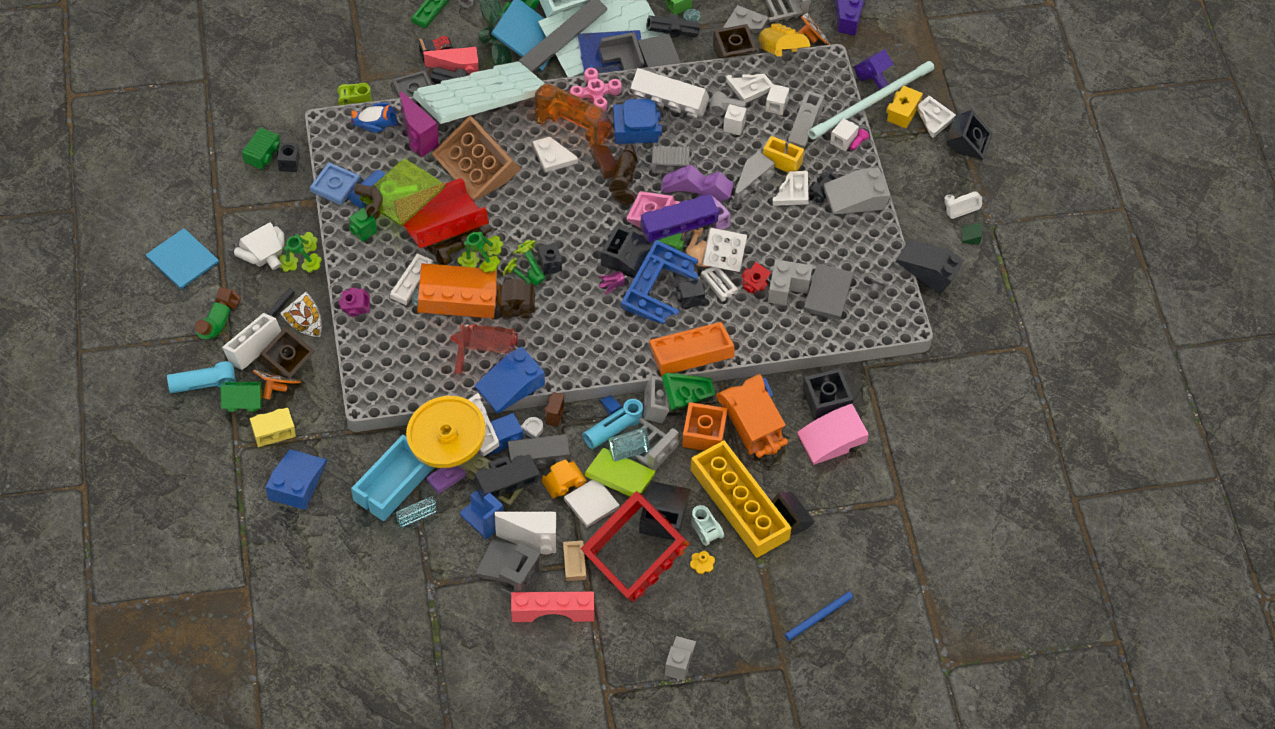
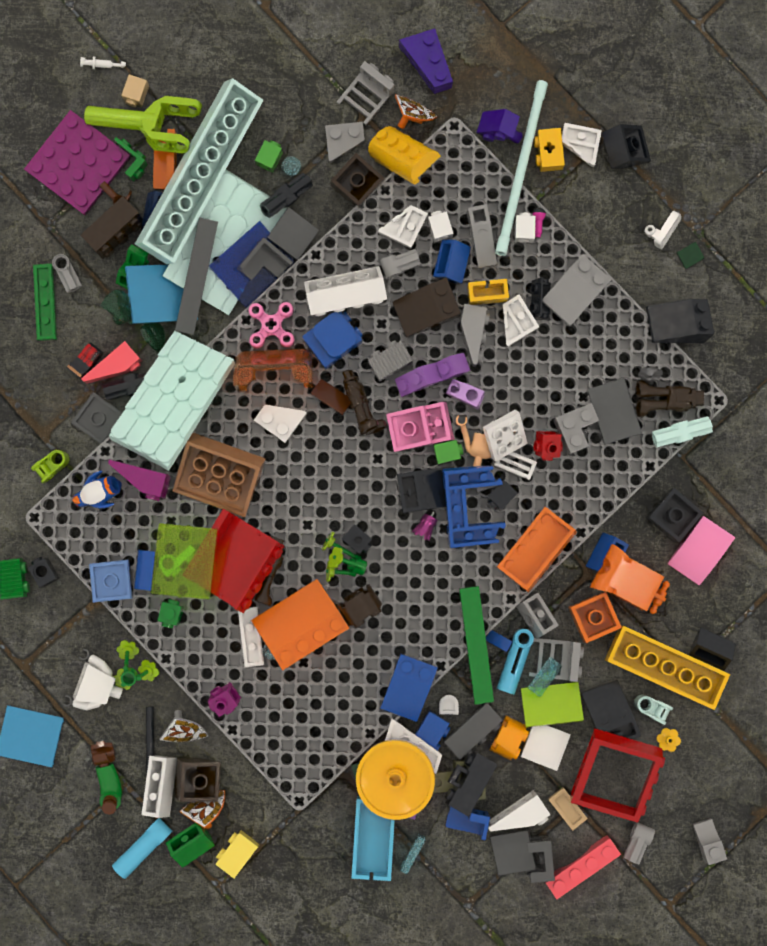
camera: 35 degrees left, 30 degrees up
(295, 479) = (291, 886): blue slope -> none
(373, 194) = (164, 585): dark brown piece -> none
(476, 243) = (290, 580): lime plant -> none
(484, 339) = (376, 690): clear red piece -> none
(554, 409) = (457, 677): reddish brown piece -> none
(589, 386) = (476, 645): none -> green tile
(620, 617) = (640, 837): none -> light grey piece
(679, 218) = (448, 431): dark purple brick -> none
(686, 388) = (557, 592): green wing -> none
(727, 143) = (426, 307): none -> dark brown slope
(734, 119) = (418, 276): white brick -> none
(769, 125) = (452, 261): none -> blue brick
(875, 333) = (682, 432): none -> light aqua piece
(887, 307) = (678, 398): none -> dark brown piece

